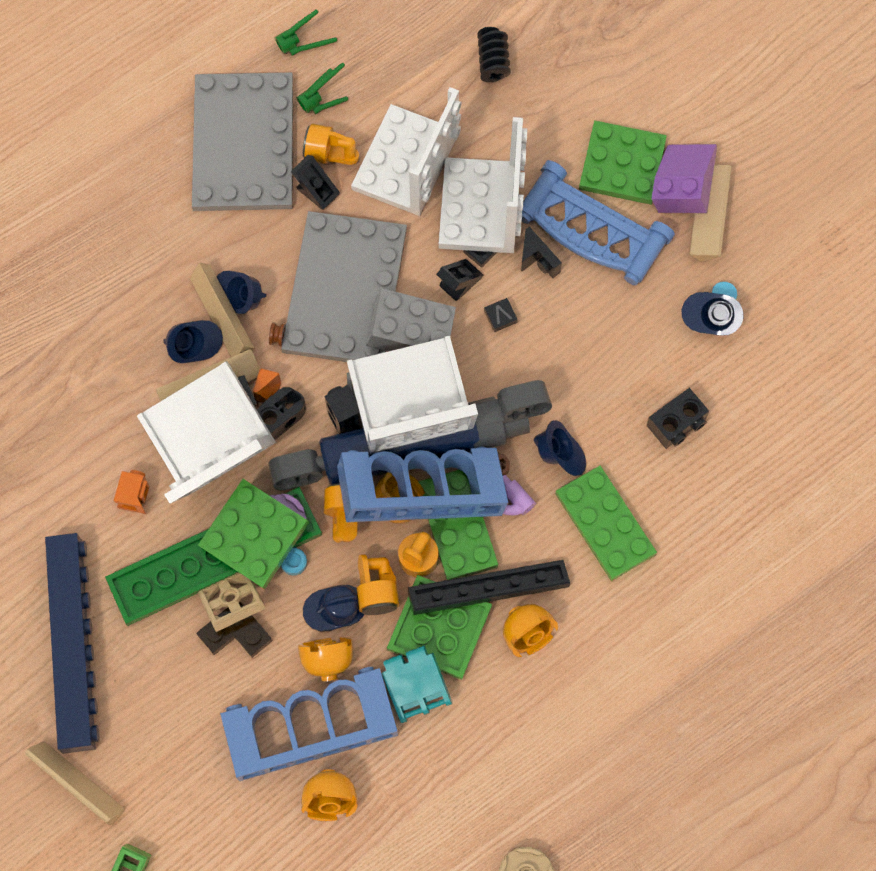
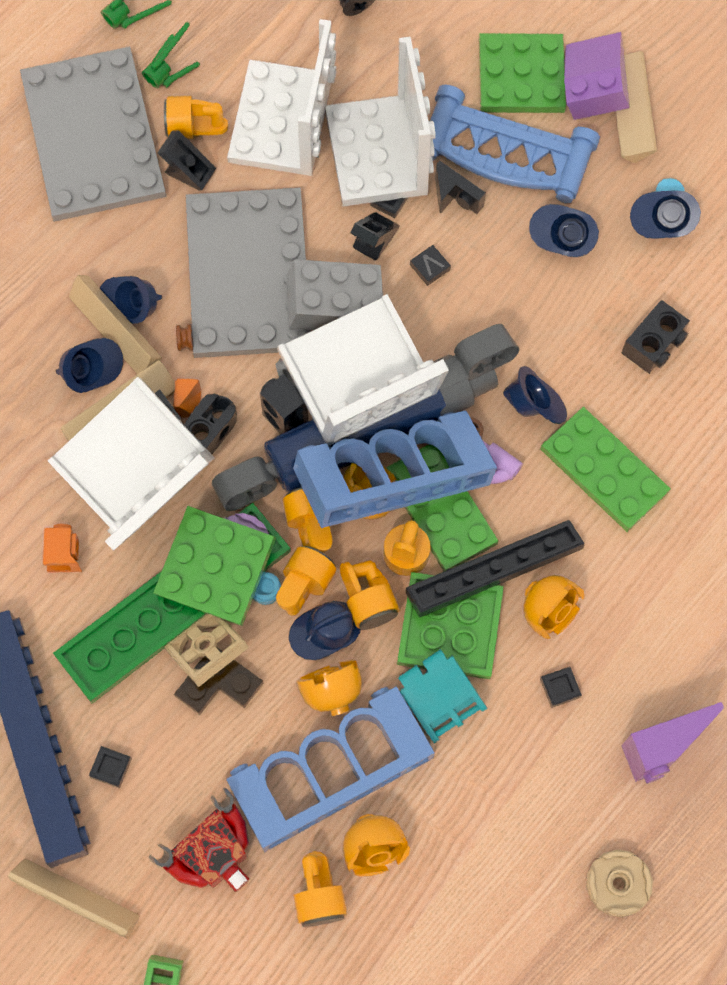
camera: 15 degrees left, 0 degrees up
(130, 681) = (110, 767): none -> black tile
(194, 769) = (210, 850): none -> torso
(274, 831) = (322, 900): none -> light orange piece
(327, 557) = (306, 574): none -> light orange piece
(519, 700) = (560, 687): none -> black tile
(588, 769) = (658, 747): none -> medium lavender slope
(620, 309) = (563, 230): none -> dark blue piece

